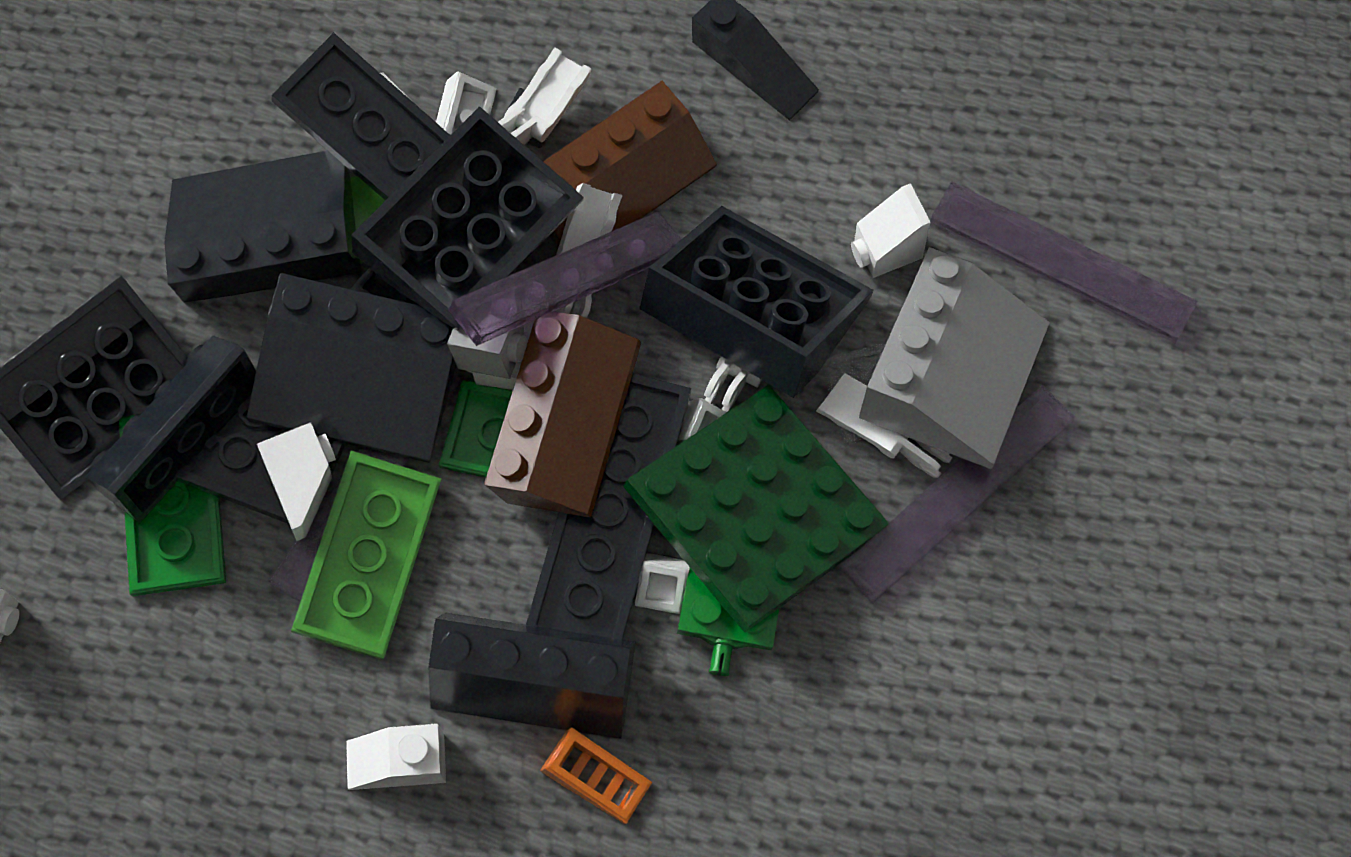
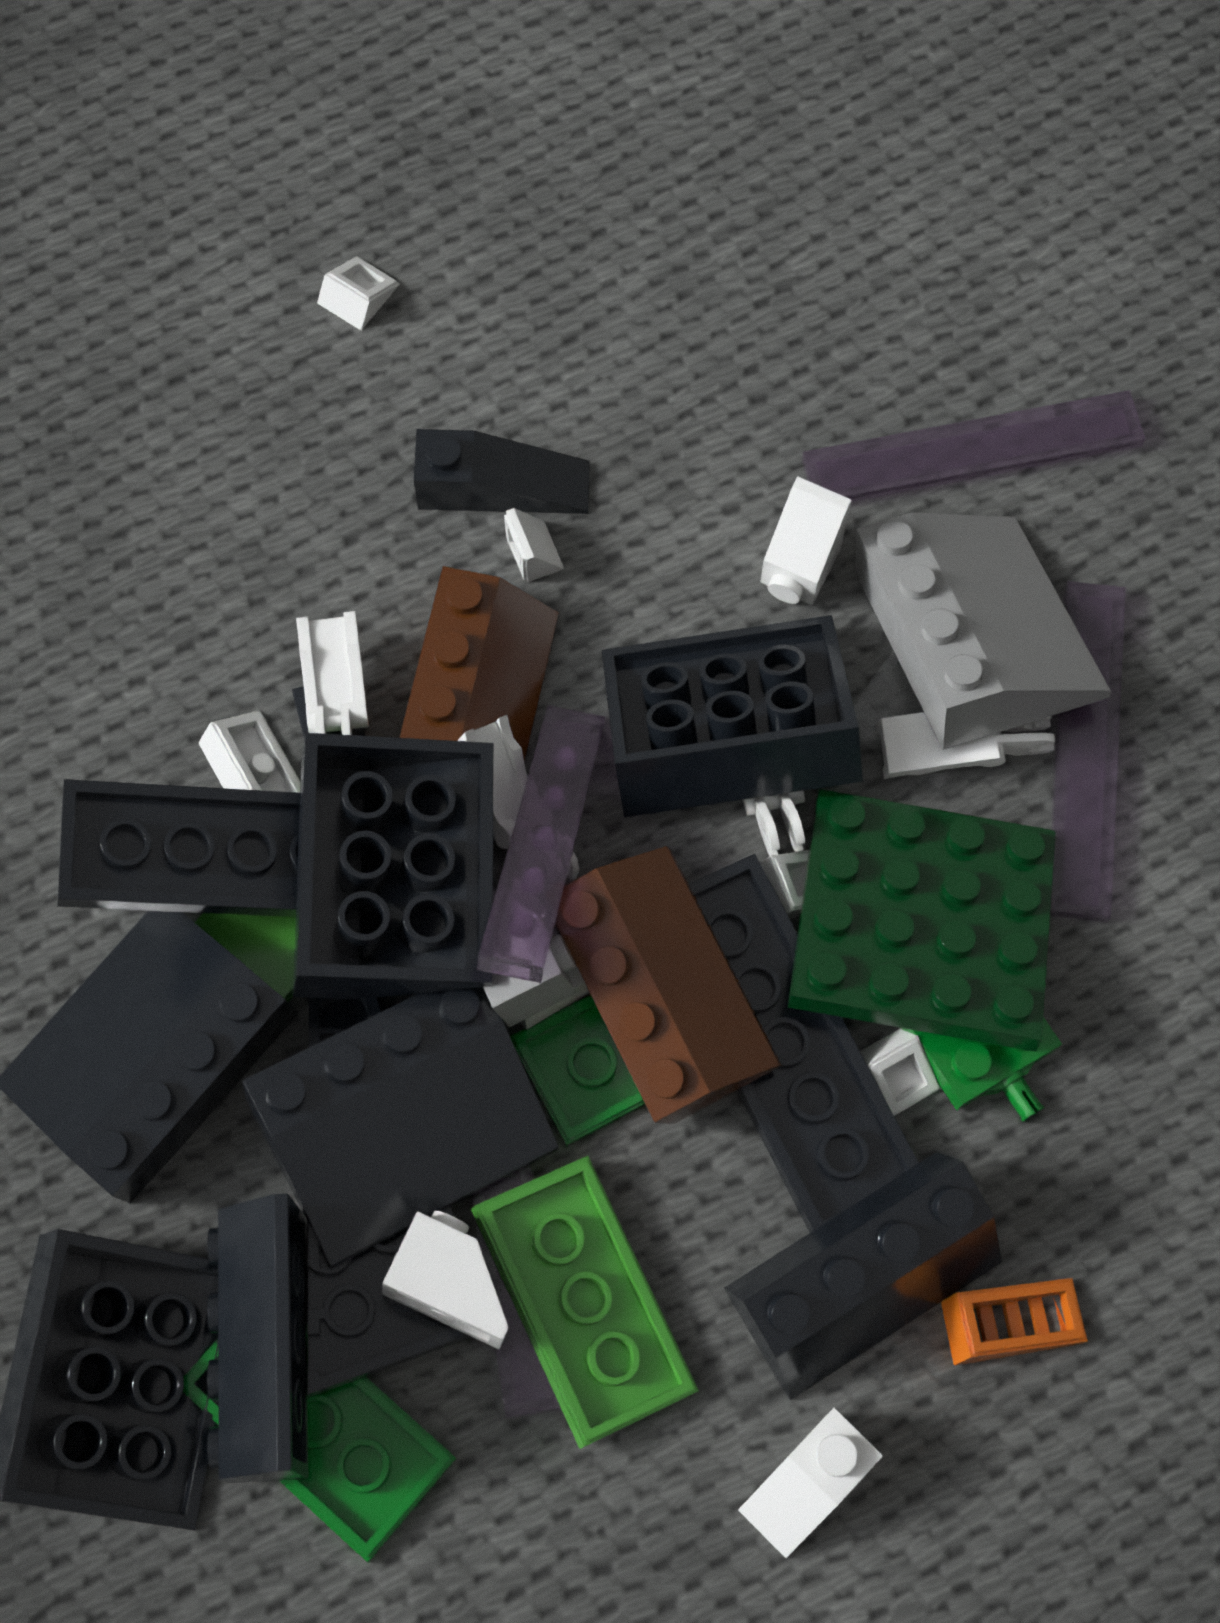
camera: 45 degrees left, 0 degrees up
(735, 111) = (531, 545): none -> white slope

